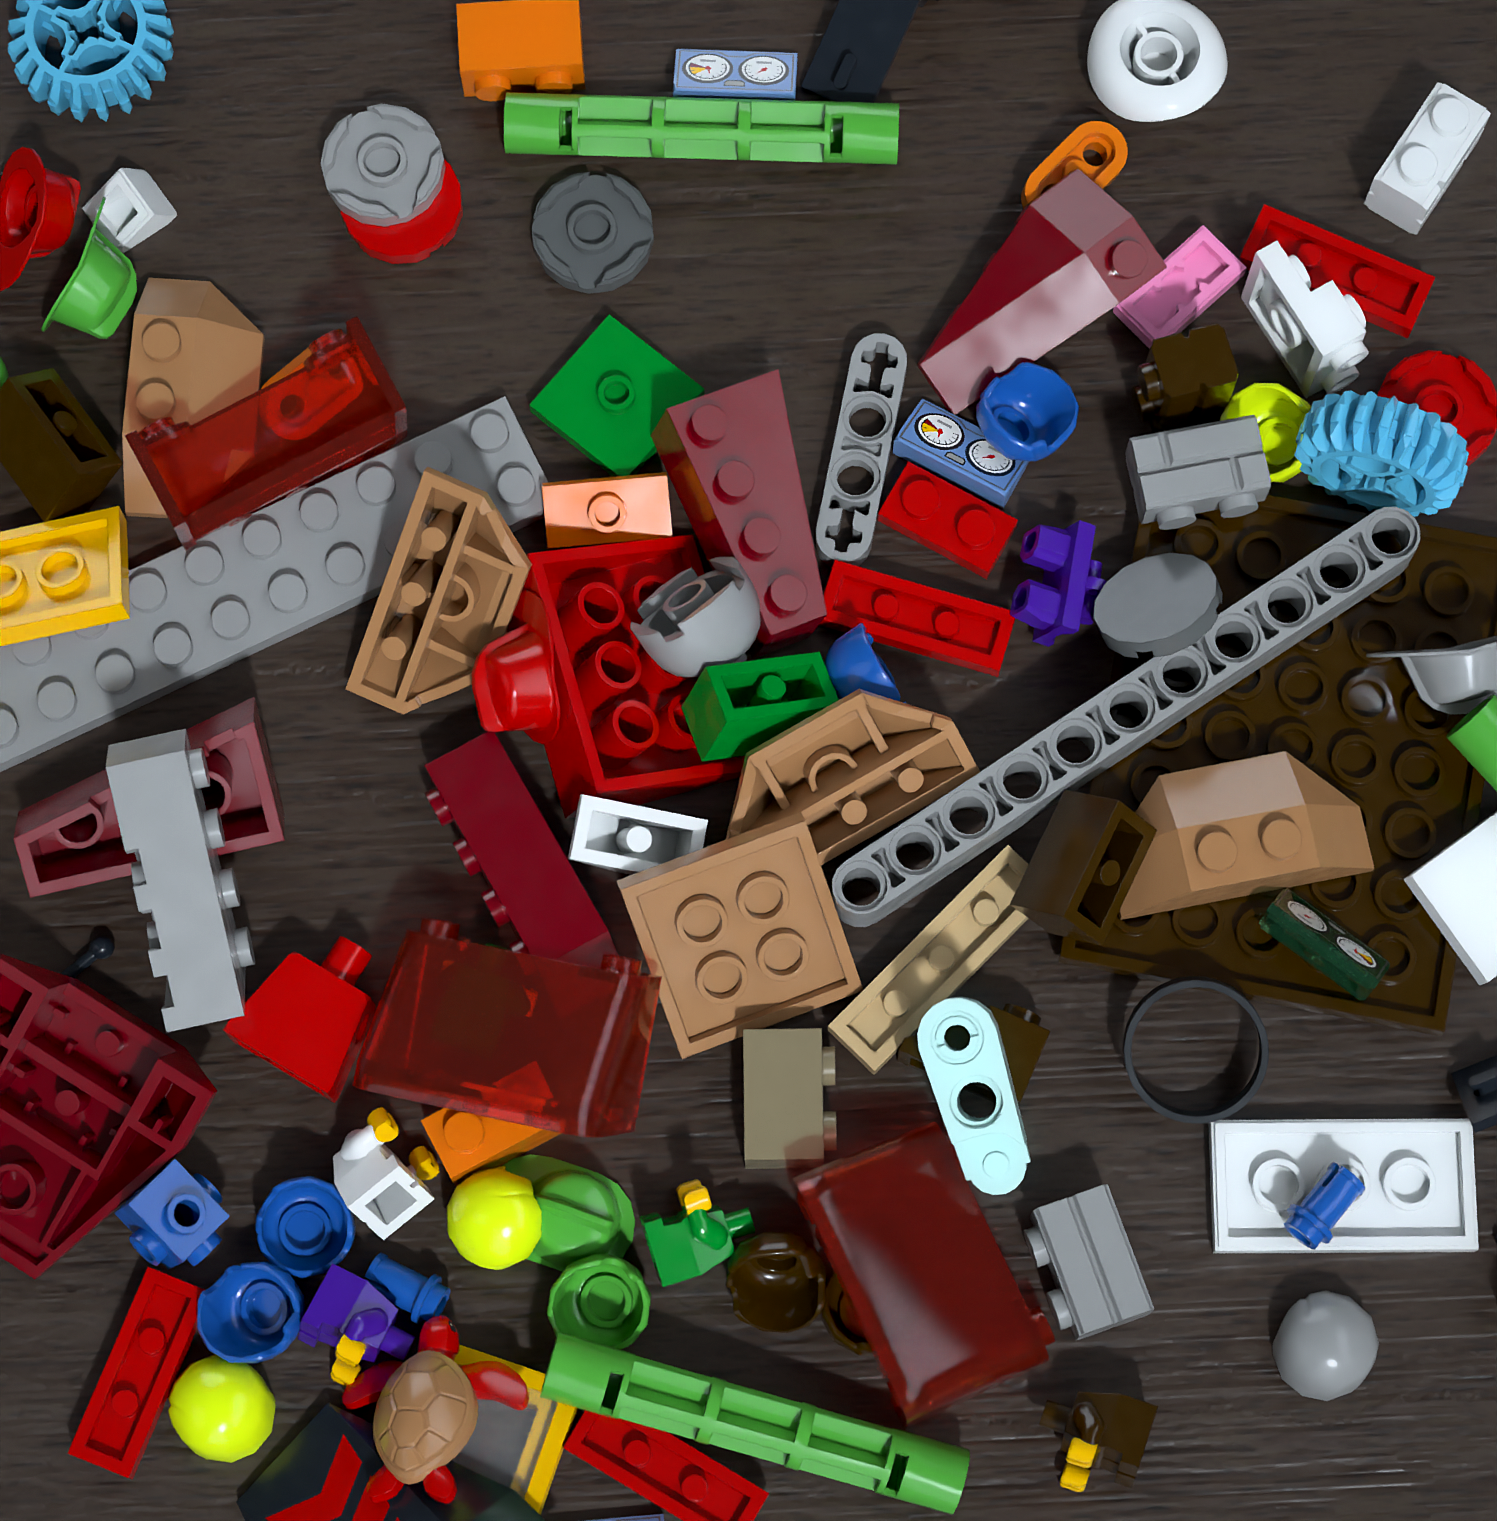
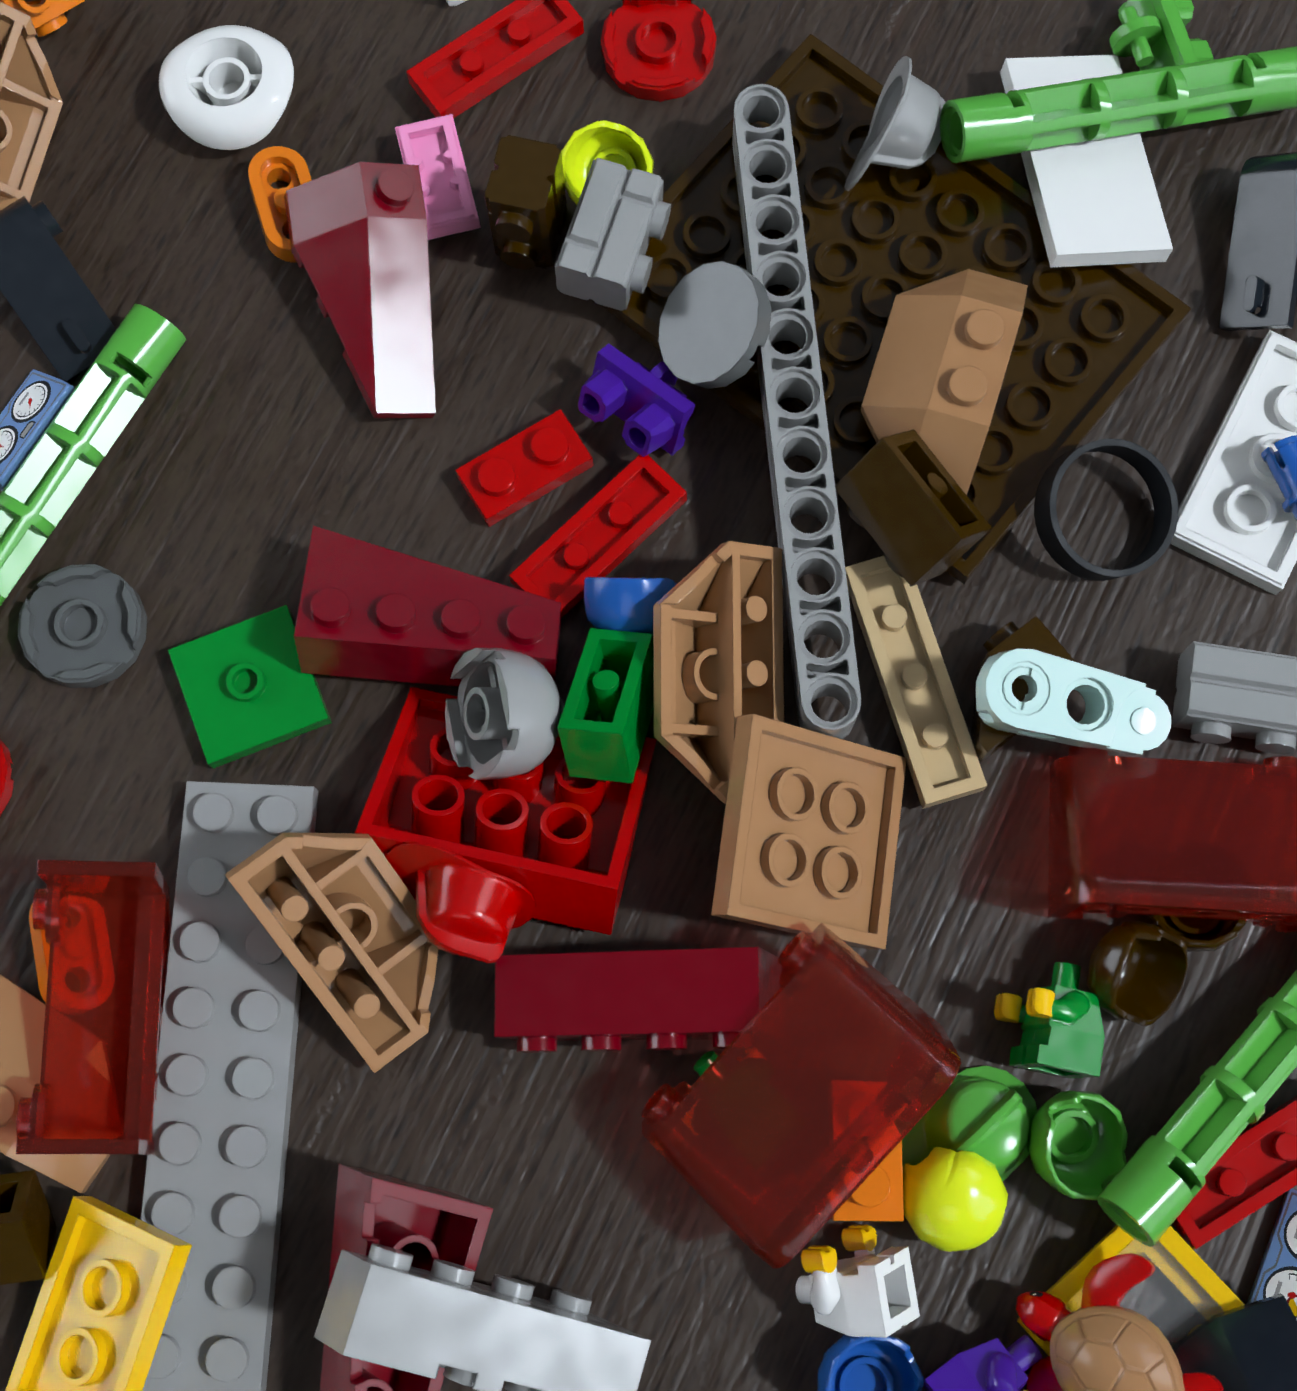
camera: 60 degrees left, 0 degrees up
(309, 1018) = (670, 1274): red torso -> none
(408, 1289) = (971, 1317): blue pin -> none
(607, 510) = (346, 747): plate -> none
(631, 836) = (673, 878): white slope -> none
(785, 1098) = (973, 876): dark tan brick -> none
(855, 450) = (426, 500): light grey beam -> none
(957, 454) = (473, 425): slope -> none
(1027, 412) = (474, 347): blue hair -> none
(1310, 331) = (531, 91): white plate -> none
(1324, 944) = (1075, 357): clear green slope -> none
(1382, 453) = (683, 83): medium azure gear -> none

